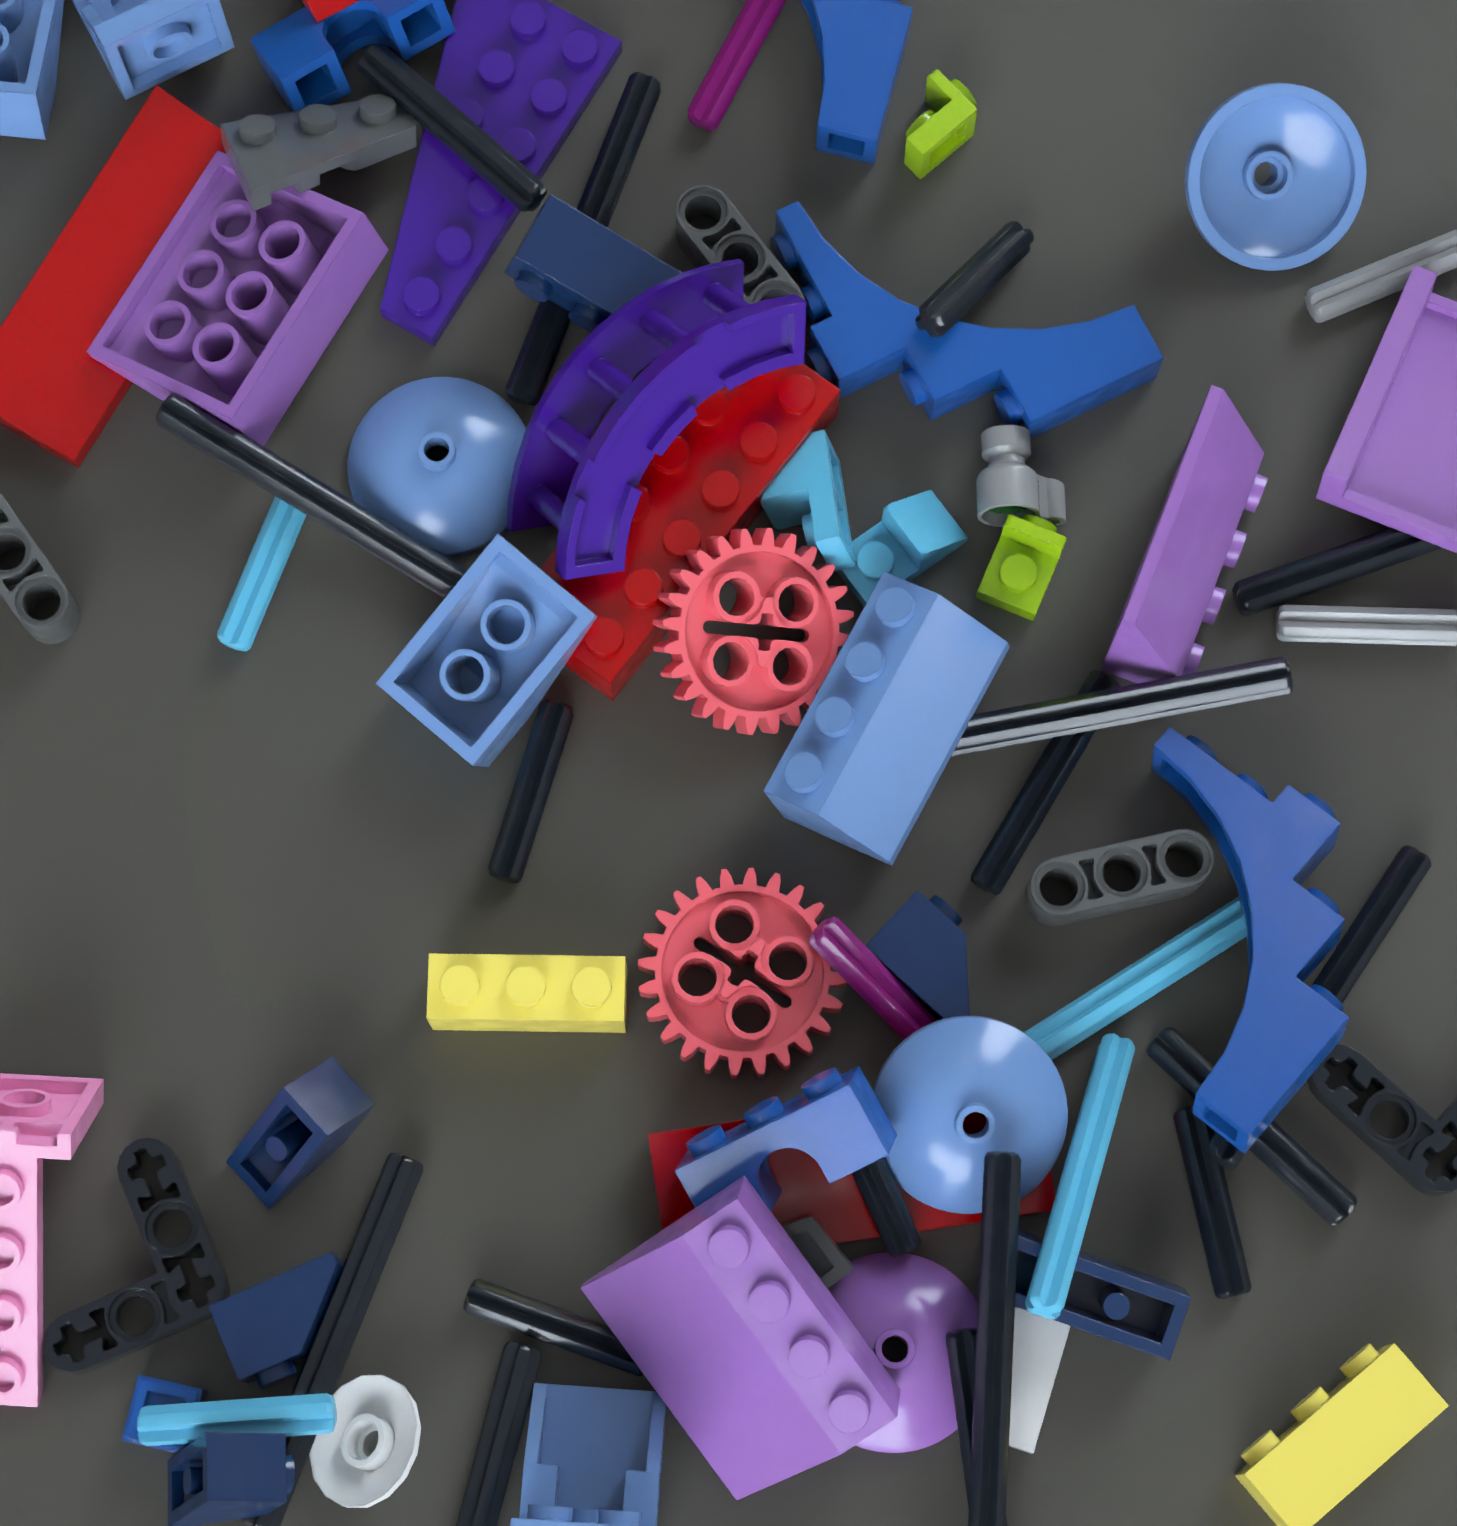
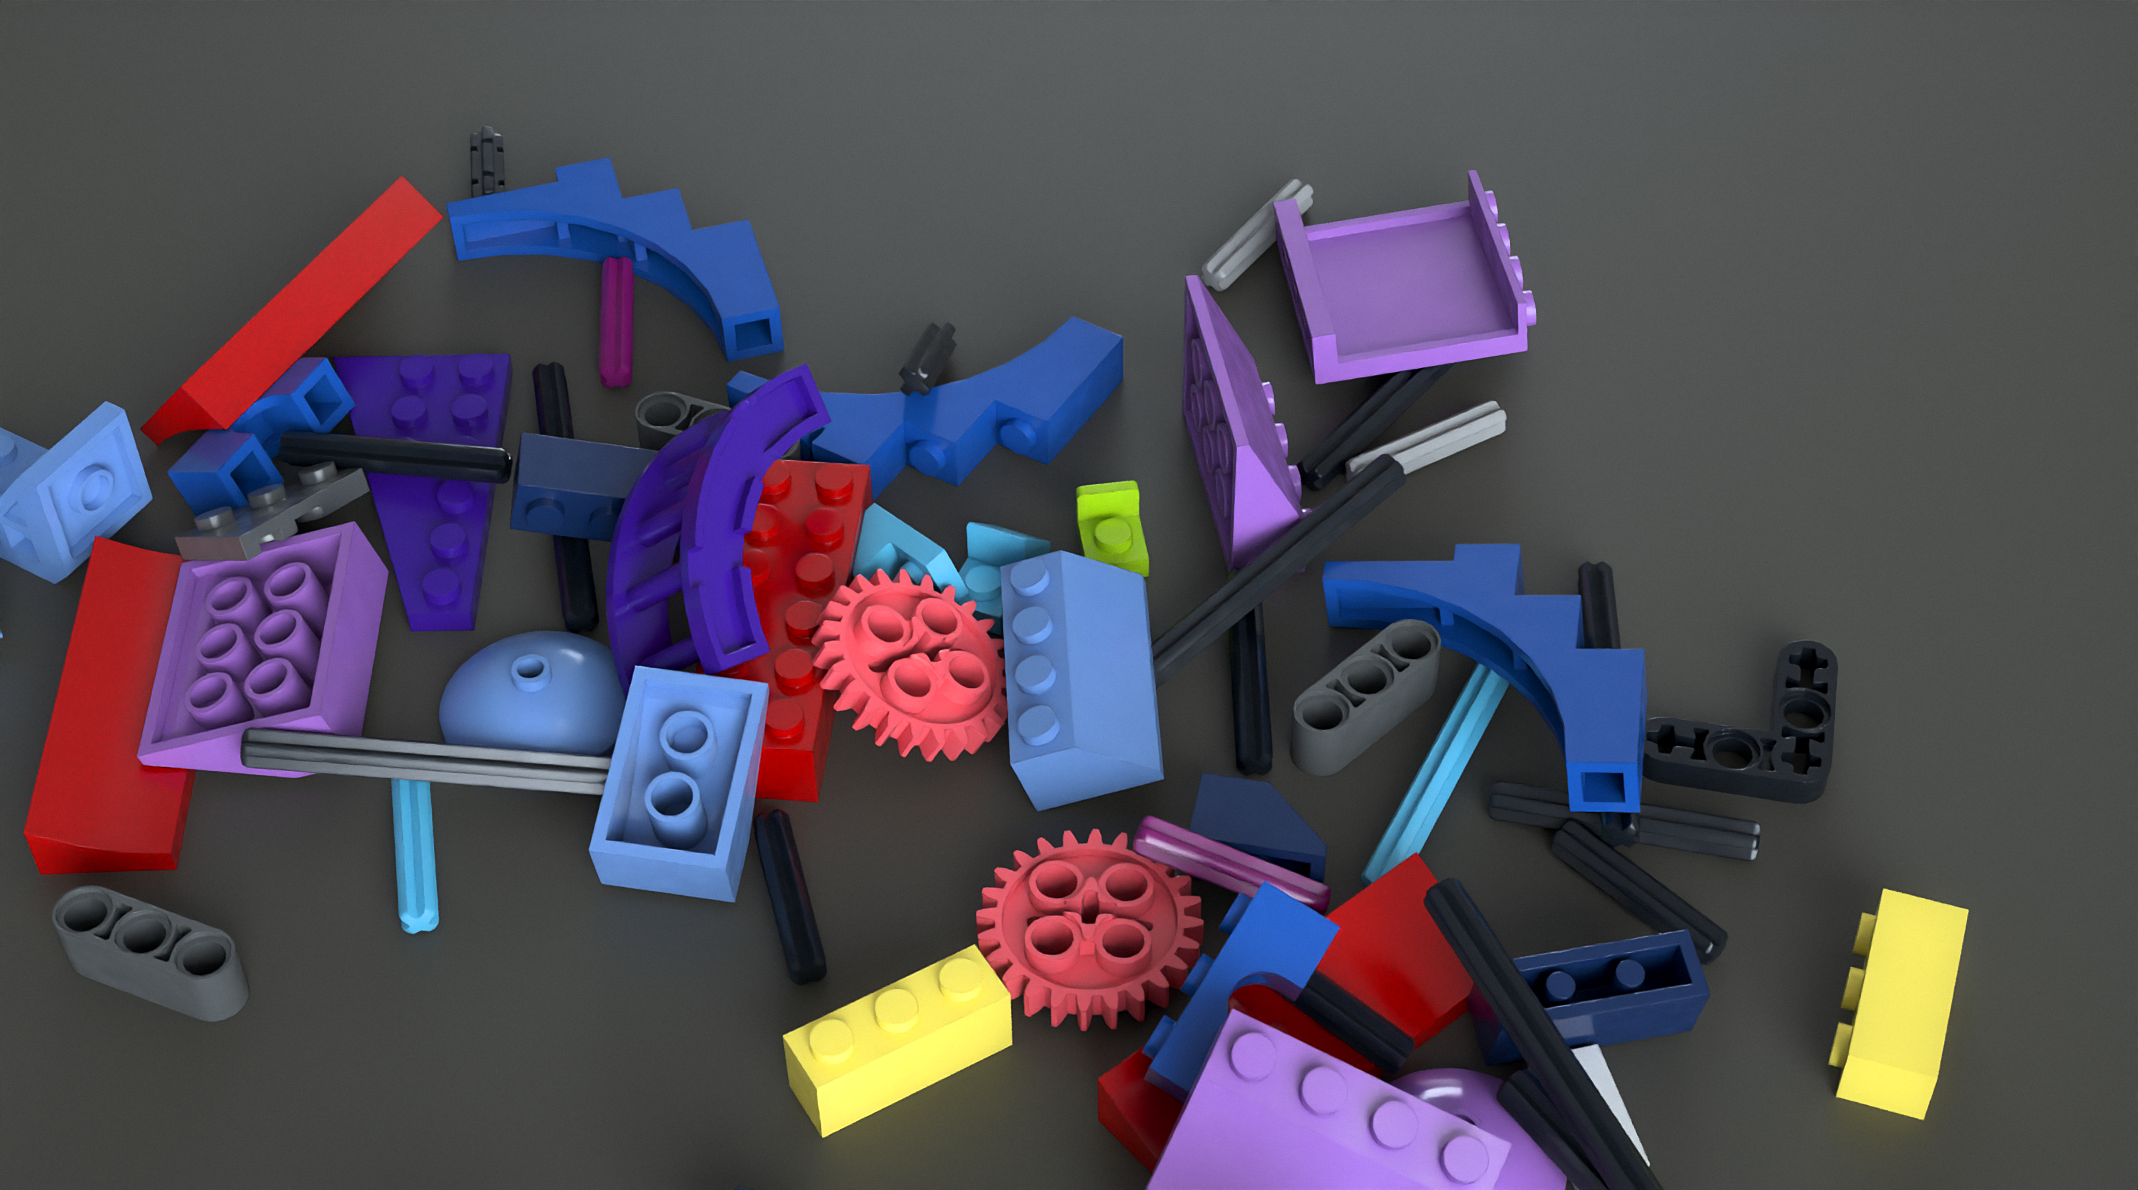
camera: 30 degrees left, 30 degrees down
(941, 133) = (824, 290): lime bracket -> none
(960, 1070) = (1385, 947): medium blue dish -> none
(1010, 485) = (1052, 478): light grey piece -> none
(1080, 1177) = (1518, 900): medium azure axle -> none
(1312, 181) = (1135, 183): medium blue dish -> none

